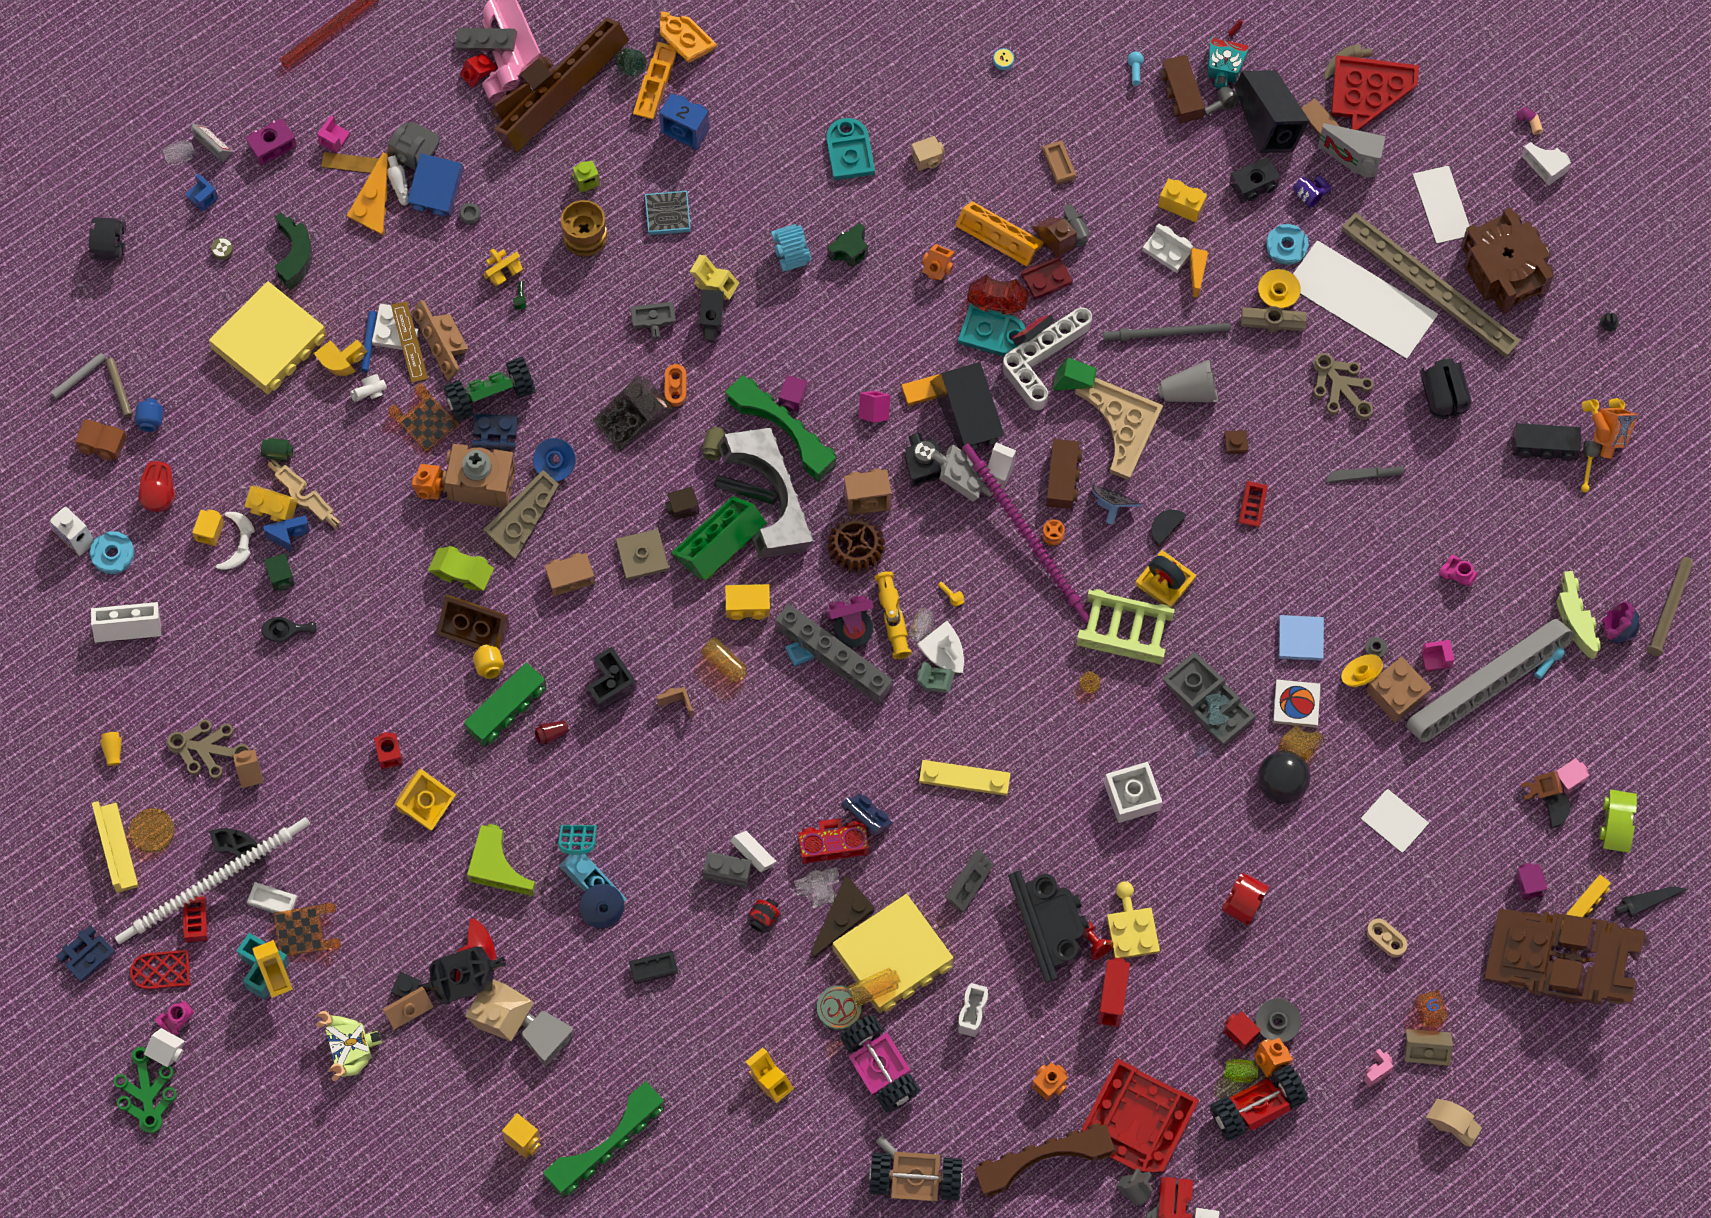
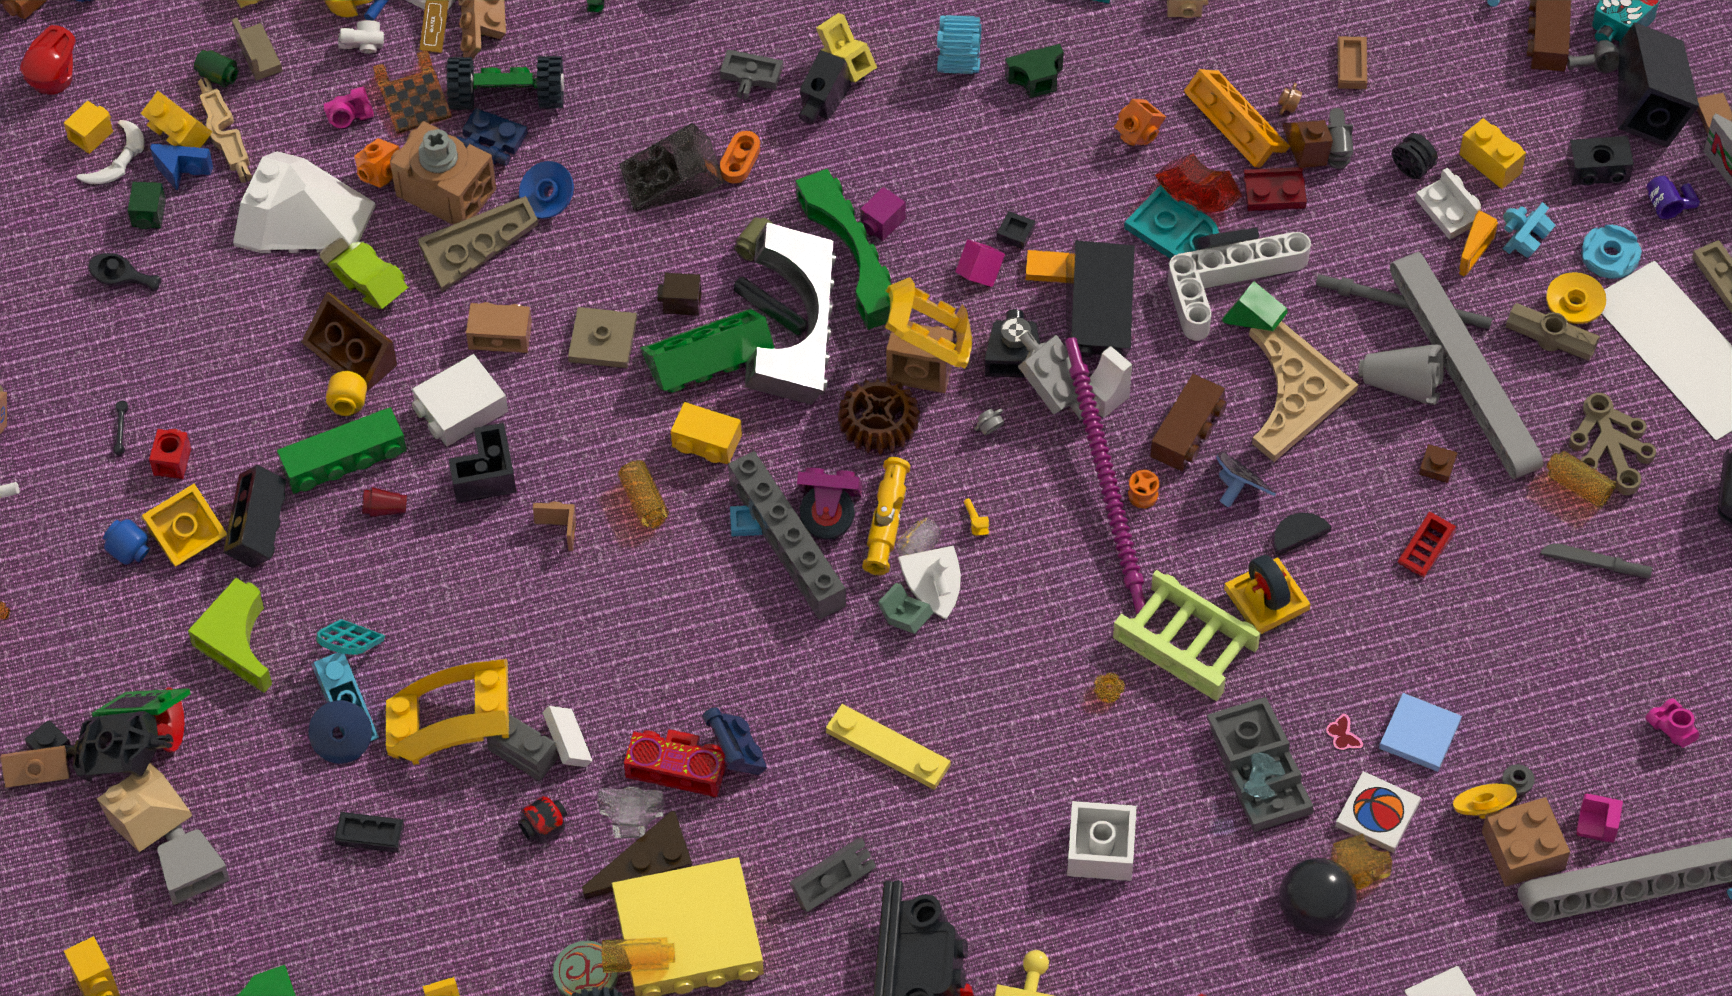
camera: 25 degrees right, 10 degrees down
(297, 424) = (257, 50): none -> dark tan panel
(335, 728) = (122, 408): none -> black hinge
(383, 448) = (346, 108): none -> dark pink plate
(388, 534) = (298, 208): none -> white wedge
(390, 826) = (126, 541): none -> blue head
(427, 559) = (333, 250): none -> dark tan tile
(462, 937) = (150, 701): none -> green container
(470, 775) = (255, 516): none -> black brick
(568, 638) = (459, 400): none -> white brick
(696, 847) = (490, 715): none -> yellow wedge
(847, 458) = (905, 297): none -> yellow wedge
(887, 372) = (1015, 230): none -> black plate
(931, 521) = (989, 421): none -> light grey plate
(1030, 207) = (1289, 99): none -> medium nougat plate
(1132, 220) = (1416, 155): none -> black wheel
(1223, 247) = (1522, 240): none -> medium azure hips
(1227, 365) = (1466, 366): none -> light grey beam
(1253, 660) = (1340, 732): none -> dark red sticker
(1333, 420) = (1580, 478): none -> clear yellow brick

